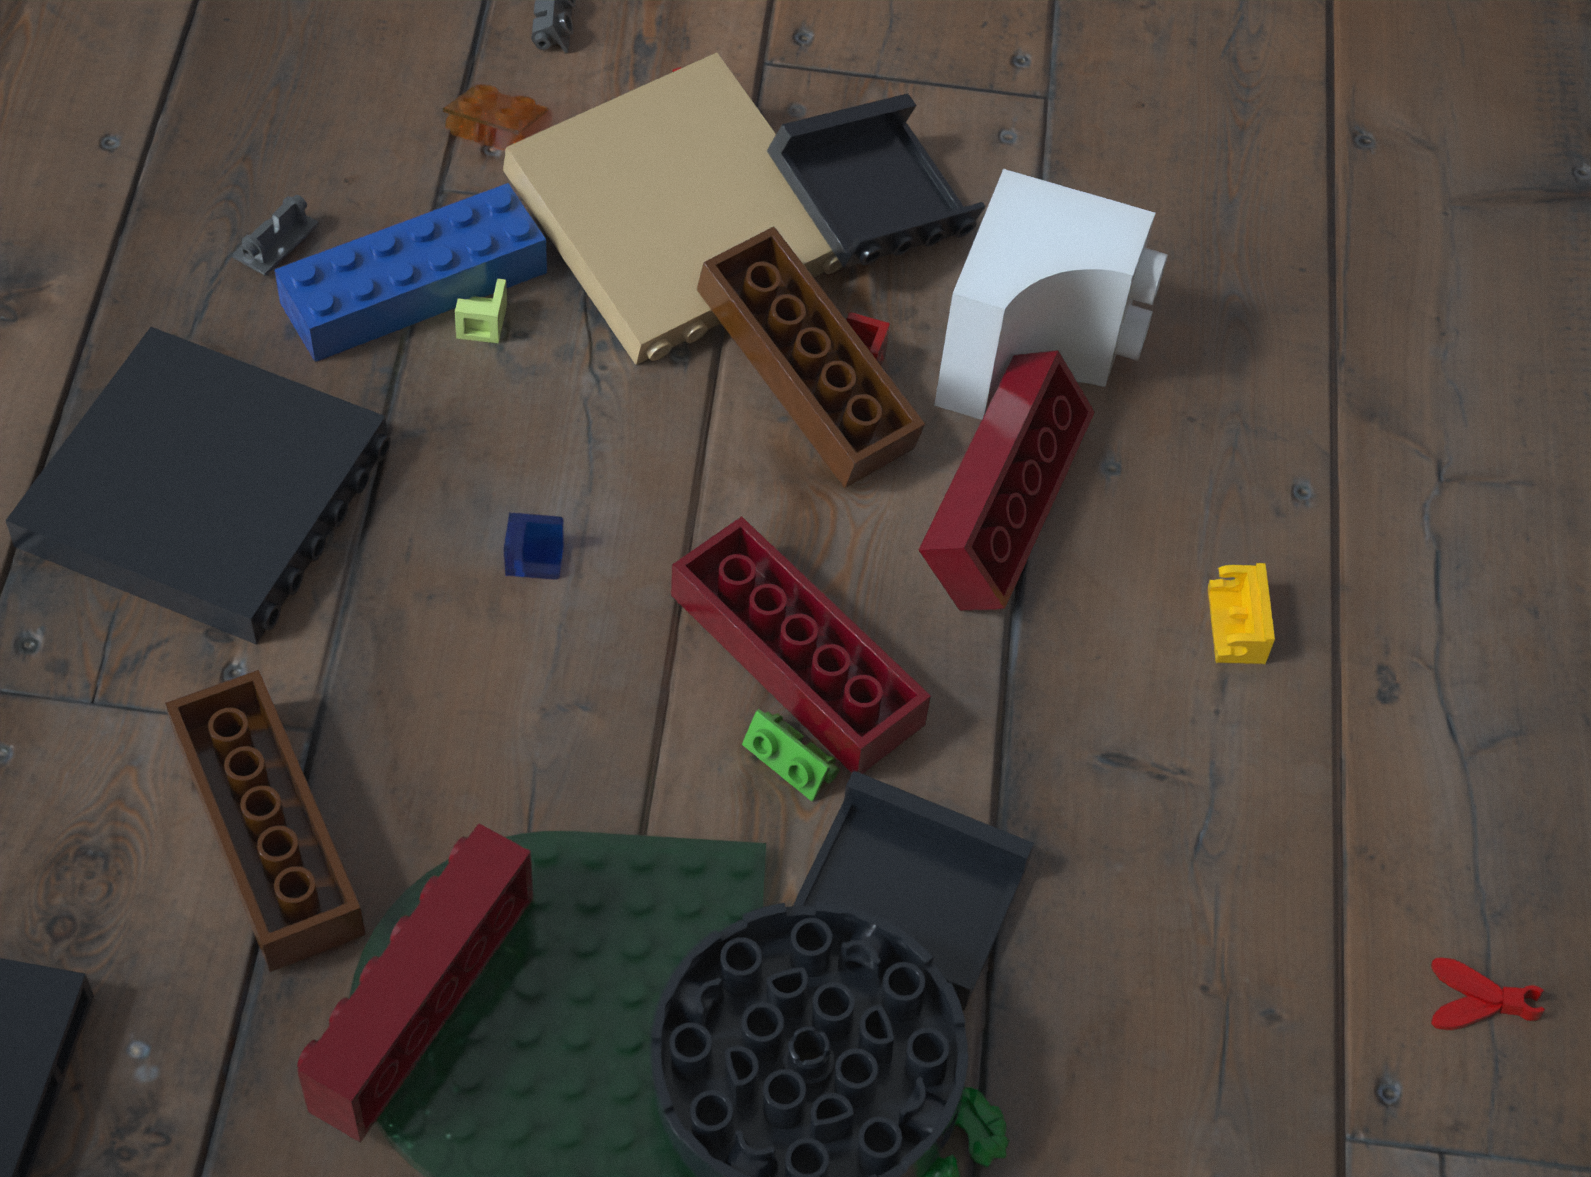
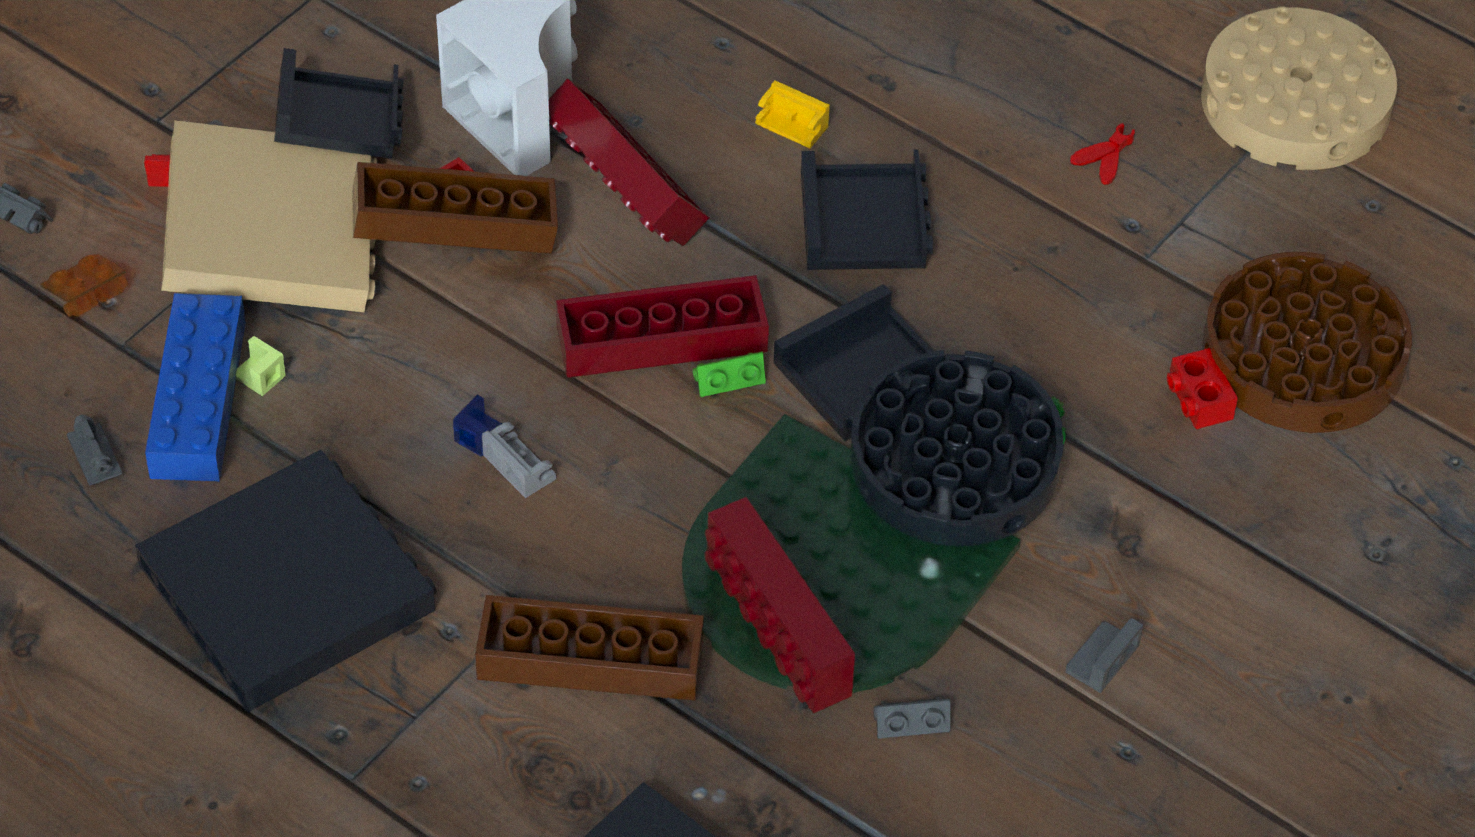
camera: 55 degrees left, 5 degrees down
(512, 608) = (516, 460): none -> light grey hinge
(1148, 768) = (865, 215): none -> black panel

